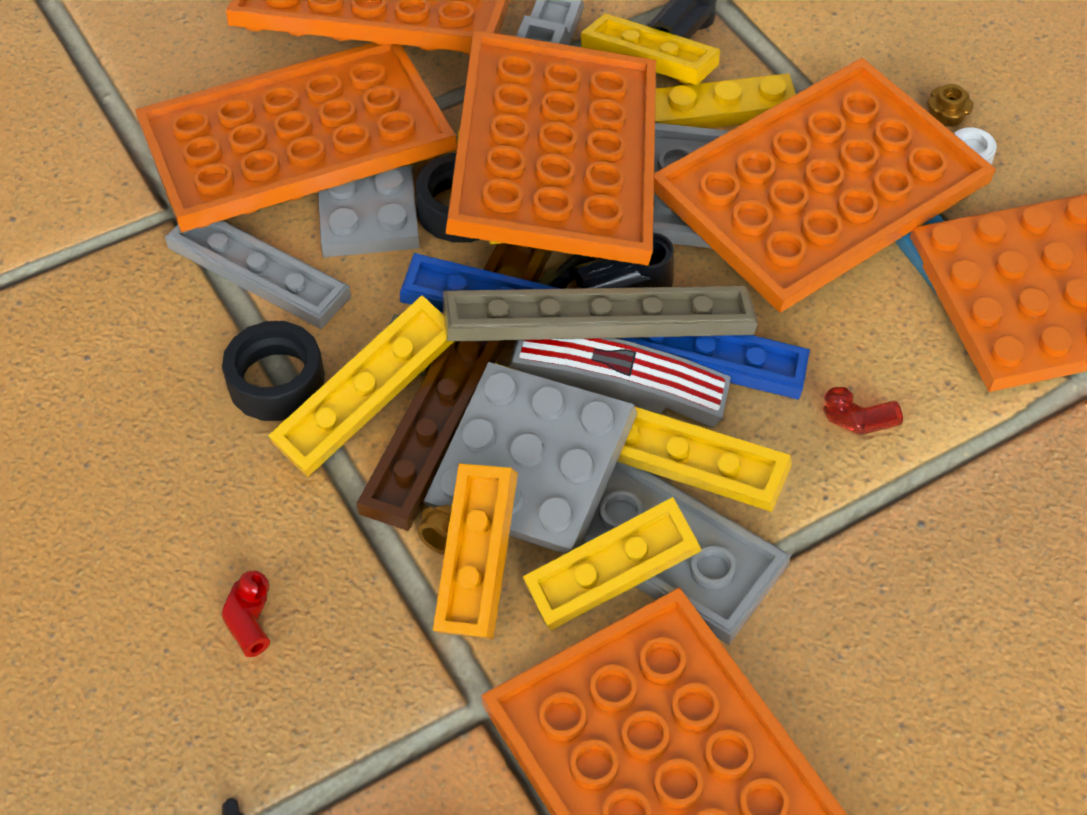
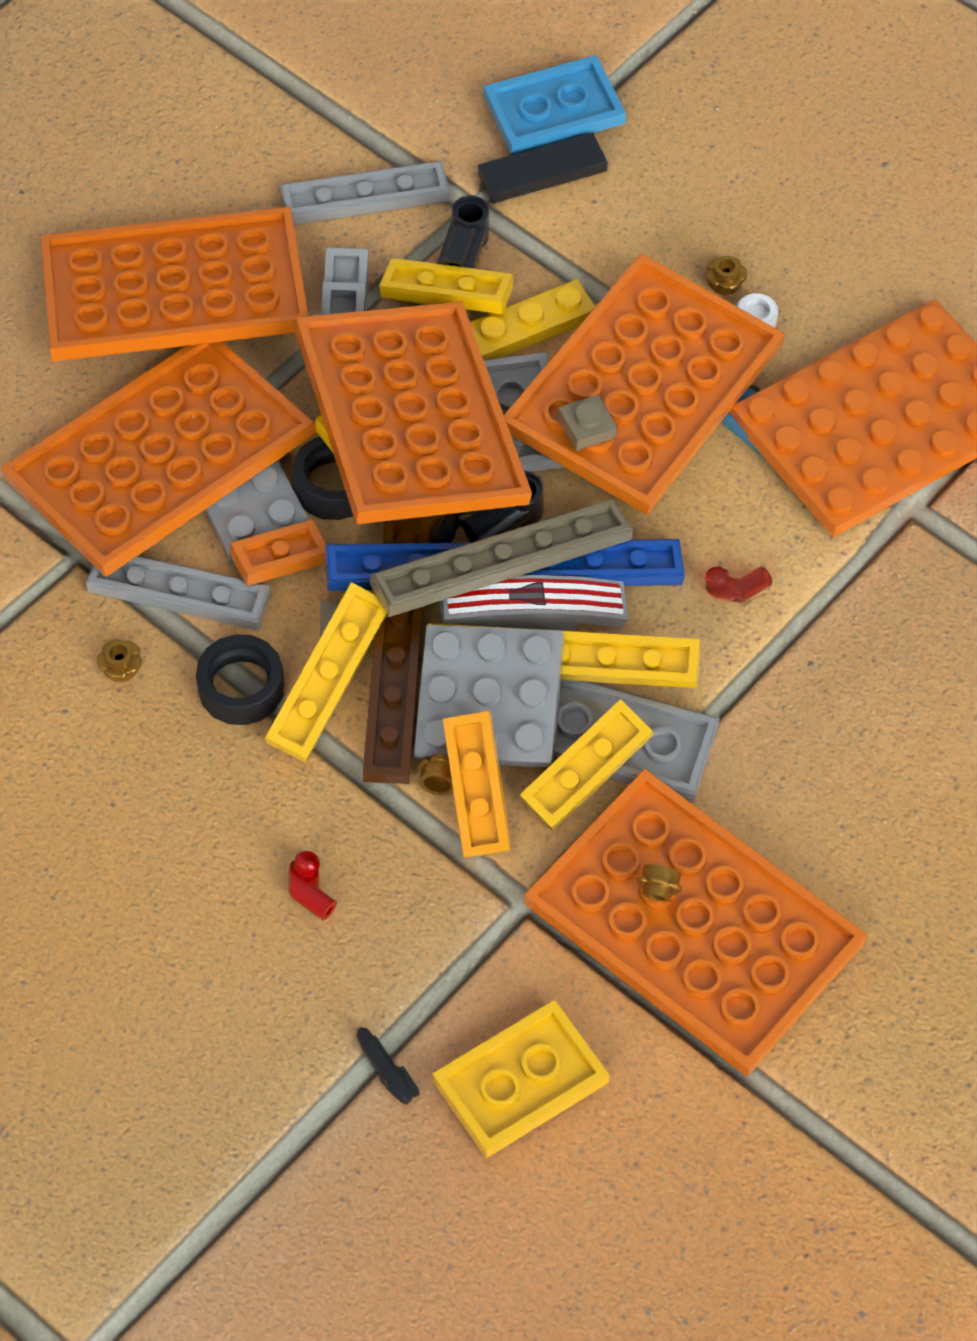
camera: 20 degrees left, 5 degrees up
(162, 320) = (122, 669): none -> pearl gold plate
(368, 254) = (278, 552): none -> orange plate
(645, 728) = (659, 882): none -> pearl gold plate
(742, 199) = (587, 422): none -> dark tan plate

